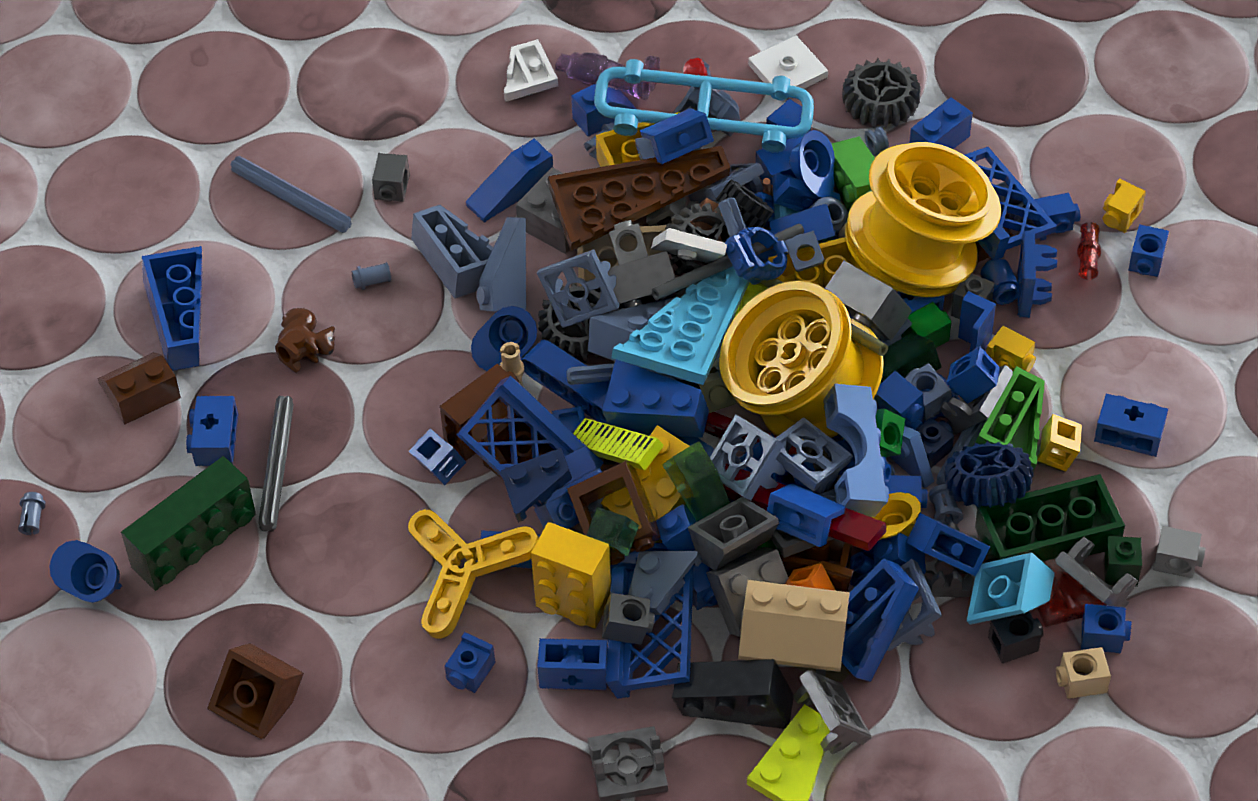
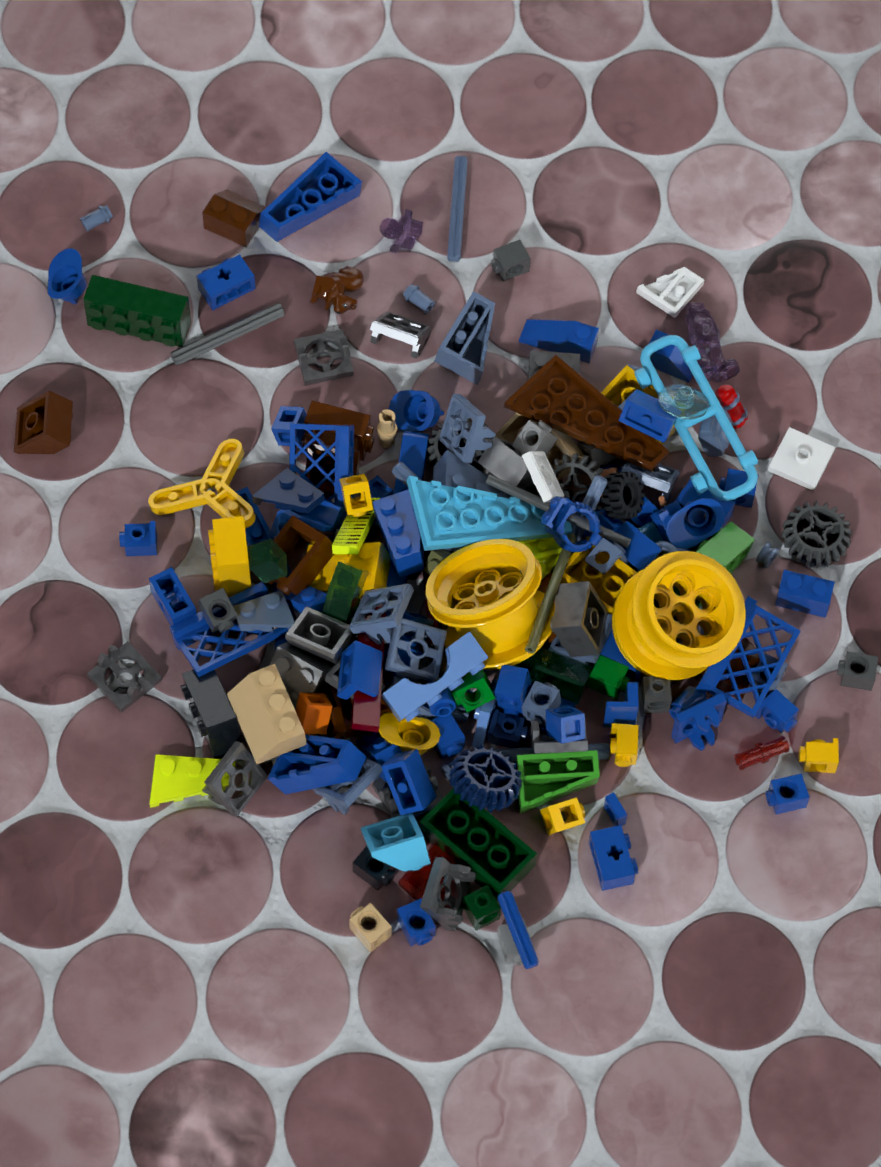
camera: 55 degrees right, 10 degrees up
(285, 244) = (402, 231): none -> clear purple hips
(368, 410) = (311, 376): none -> flat silver piece
(398, 303) = (401, 329): none -> flat silver piece
(505, 271) = (461, 376): sand blue slope -> none
(584, 420) = (353, 485): none -> yellow brick
(682, 100) = (683, 401): none -> clear light blue dish
(1050, 133) = (865, 663): none -> dark grey brick
(1079, 396) = (615, 810): none -> blue tile
(1176, 533) = (518, 930): none -> blue axle

